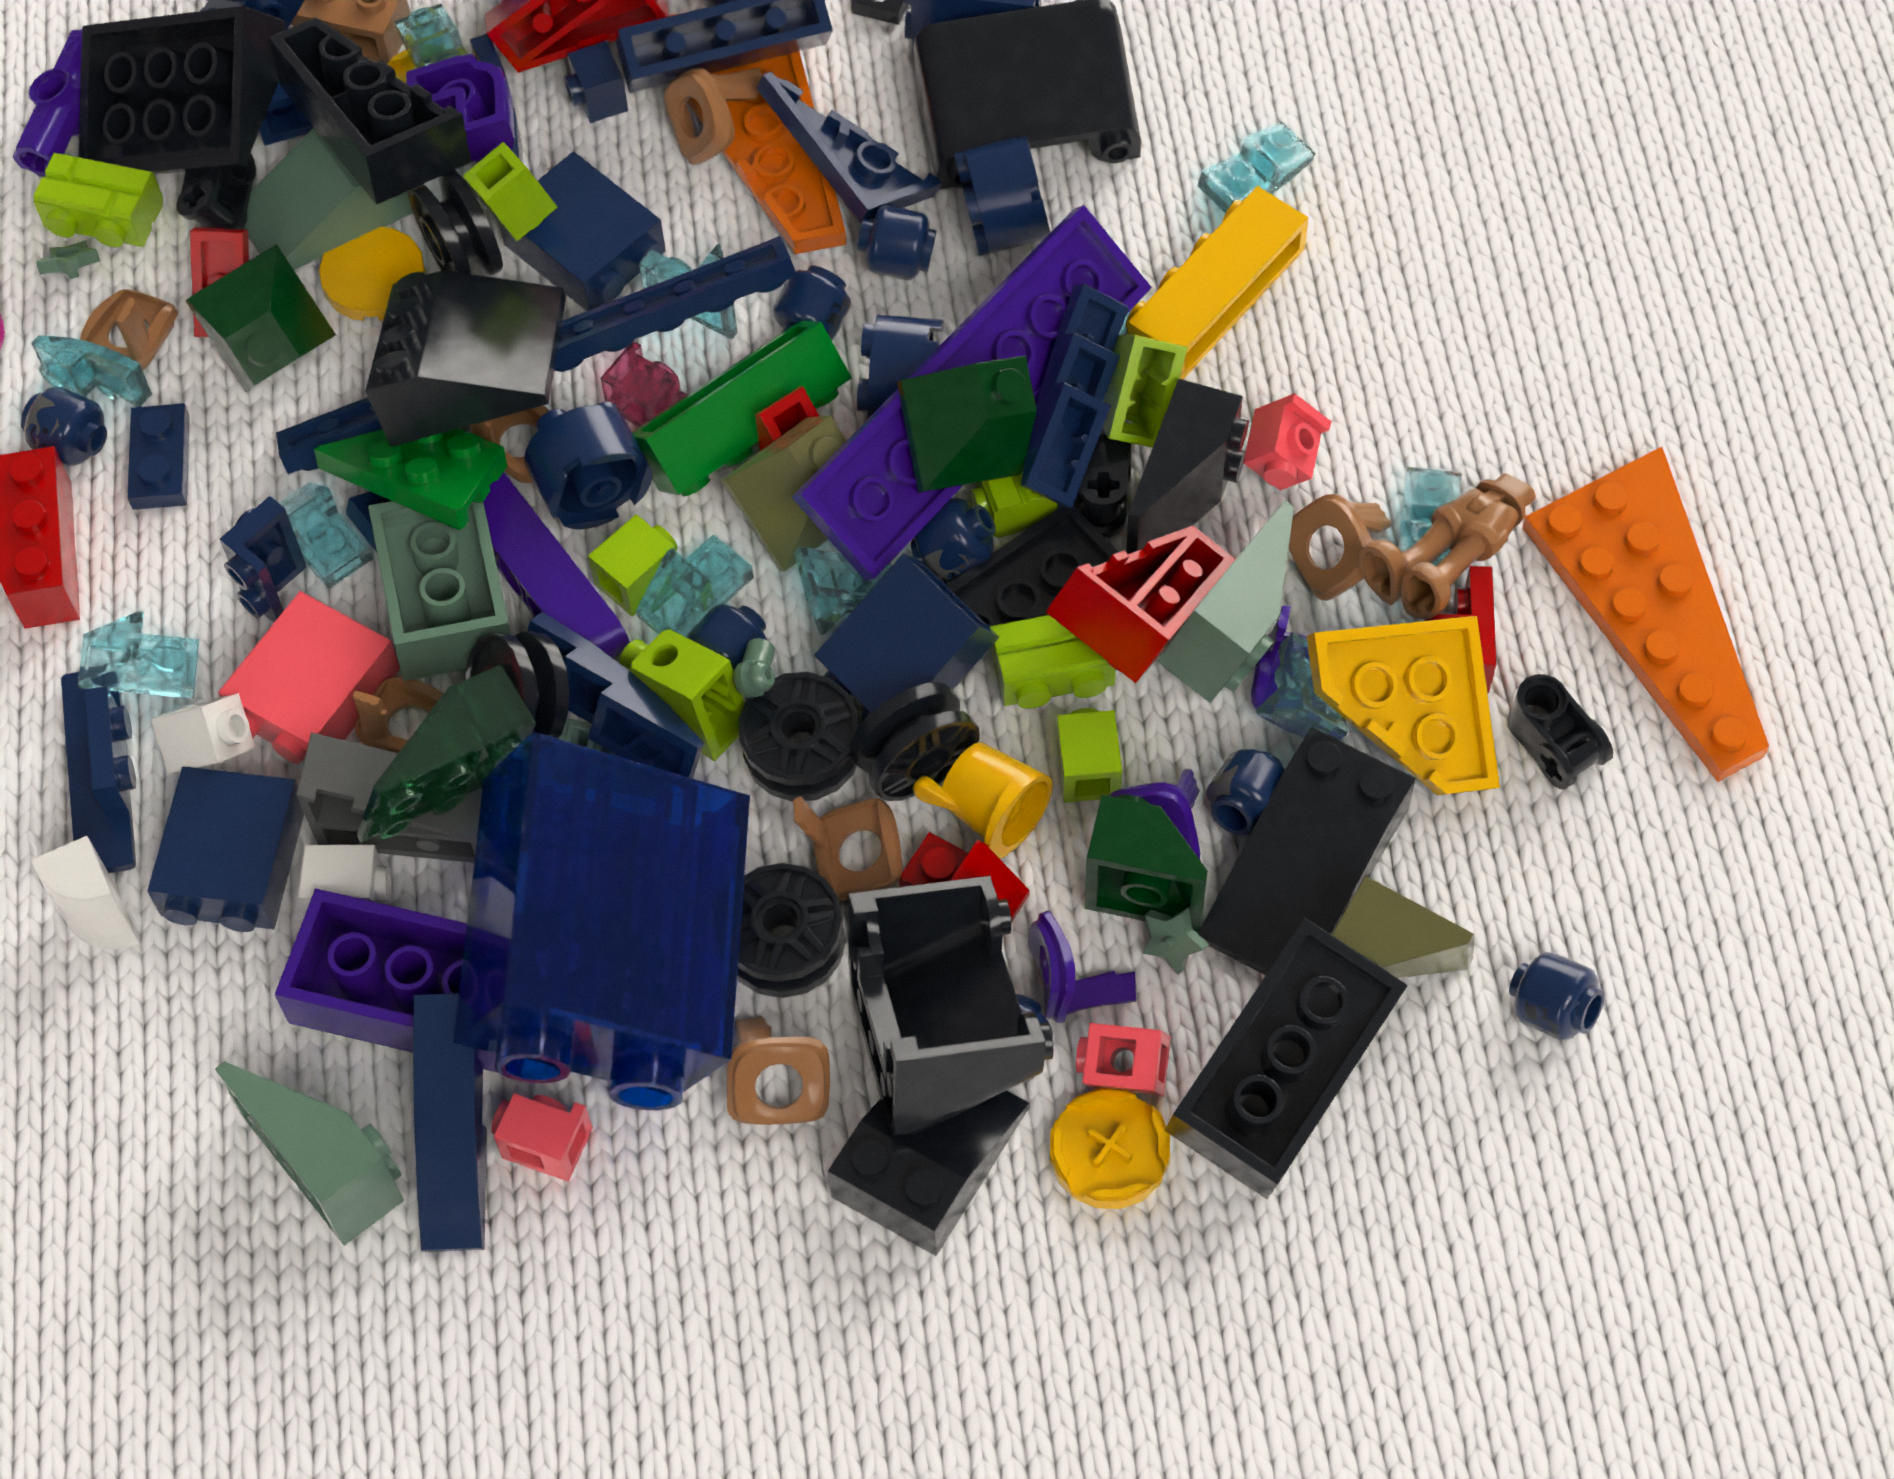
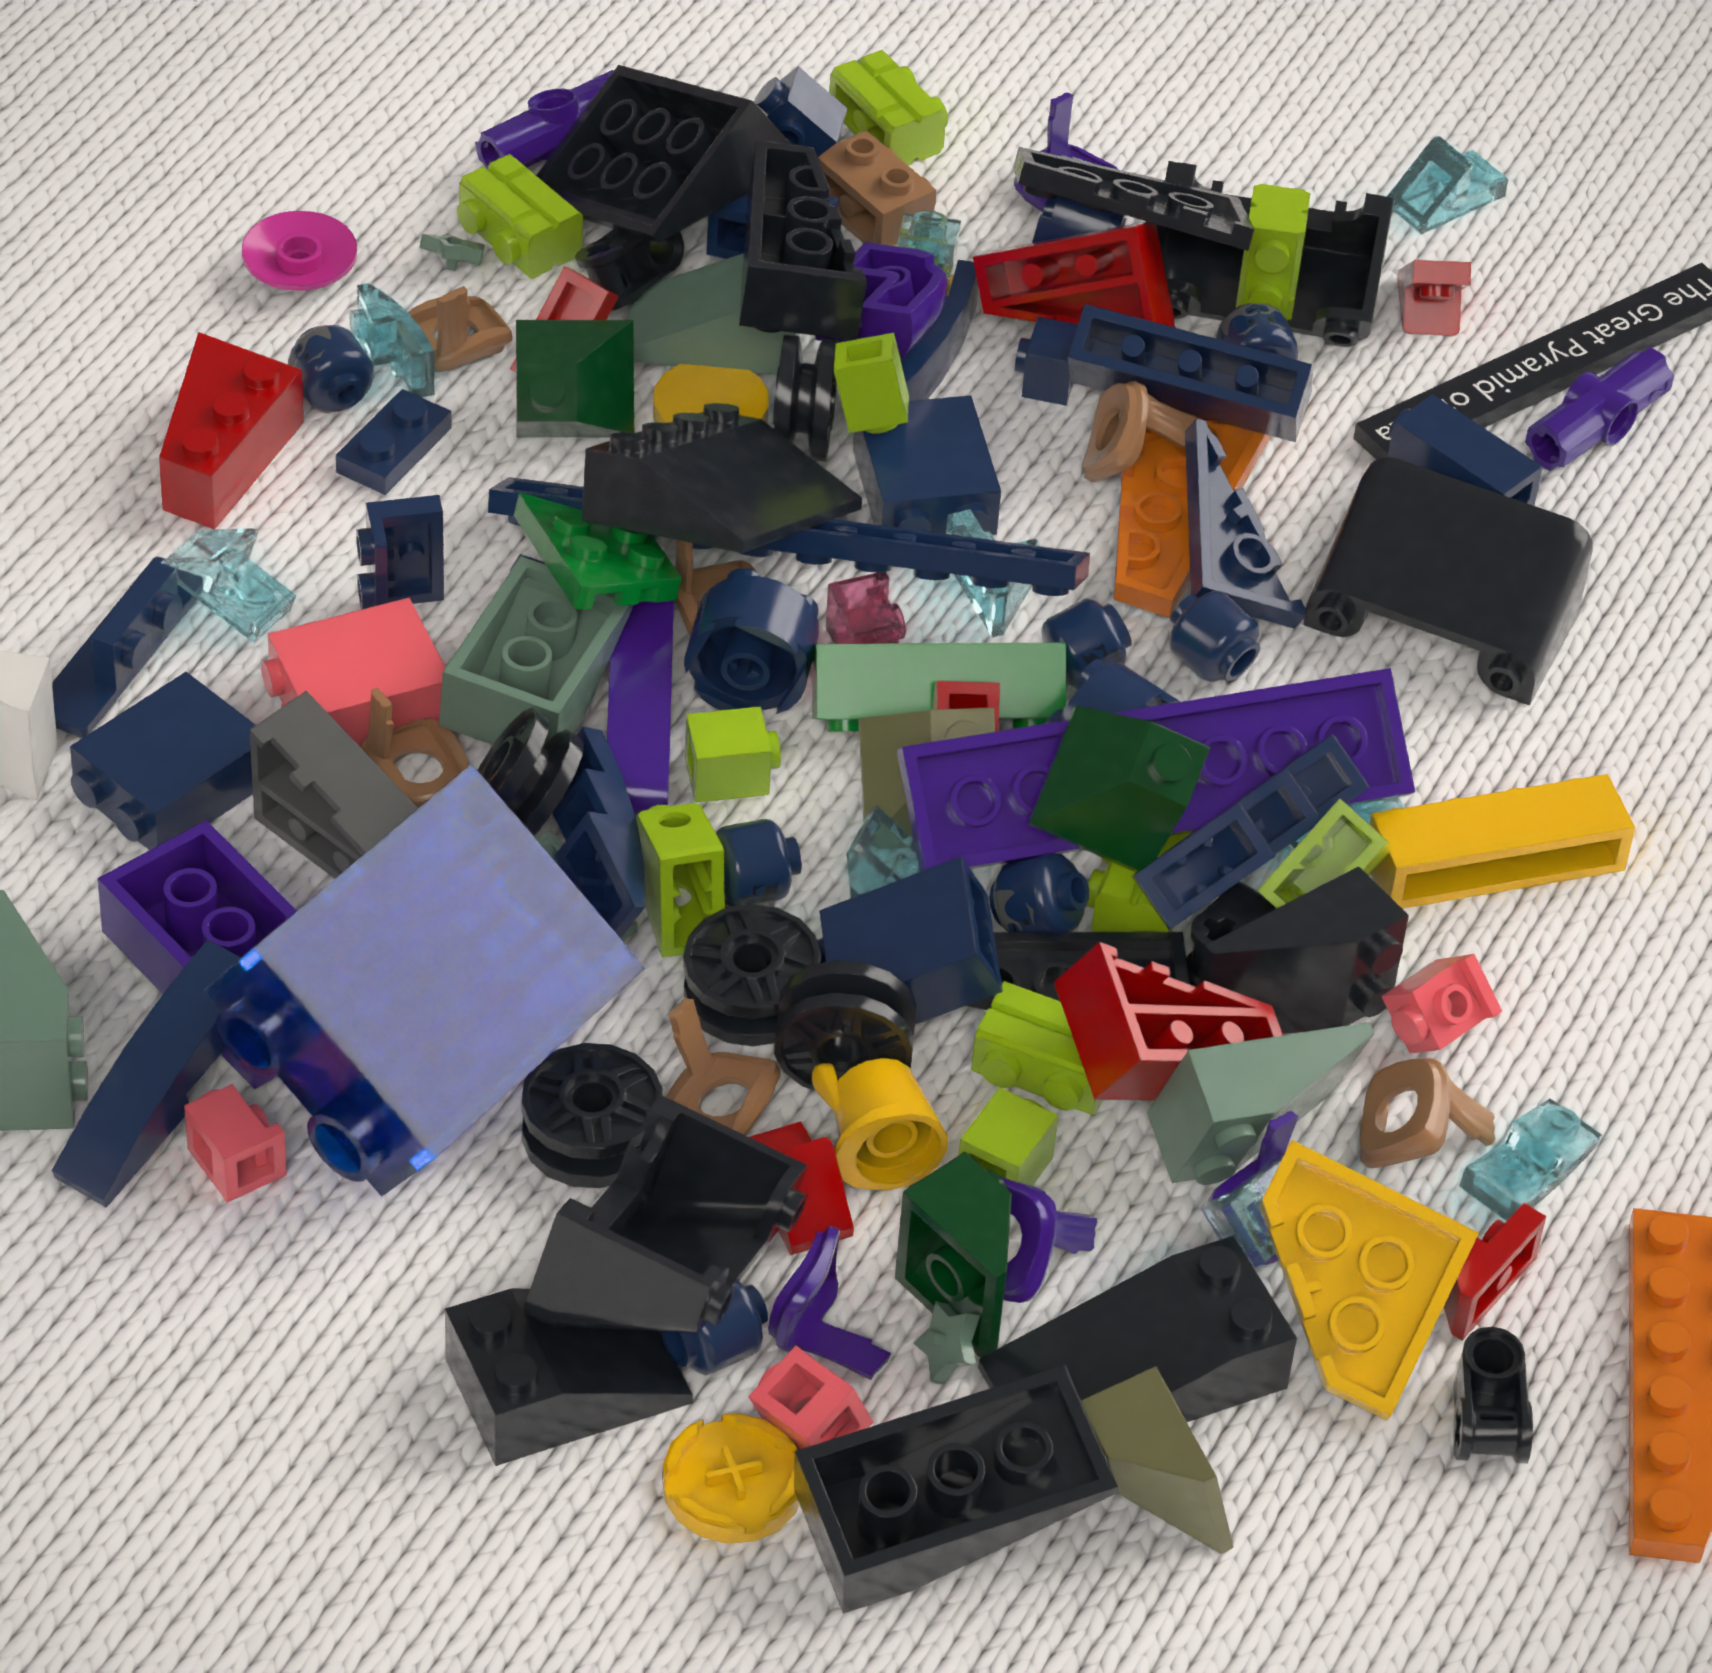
camera: 30 degrees right, 15 degrees down
(203, 733) = (228, 657): white brick -> none
(324, 536) = (472, 573): clear light blue slope -> none
(345, 871) = (255, 834): white brick -> none
(449, 753) = (388, 761): clear green slope -> none
(692, 586) = (751, 793): clear light blue slope -> none
(754, 673) = (745, 885): sand green arm -> none
(760, 1050) = (514, 1216): medium nougat piece -> none
(1002, 195) = (1348, 632): dark blue brick -> none
(1243, 789) = (1123, 1253): dark blue head -> none
(1265, 160) = (1647, 775): clear light blue slope -> none
(1469, 526) = (1541, 1171): medium nougat piece -> none
(1557, 996) = (1279, 1616): dark blue head -> none

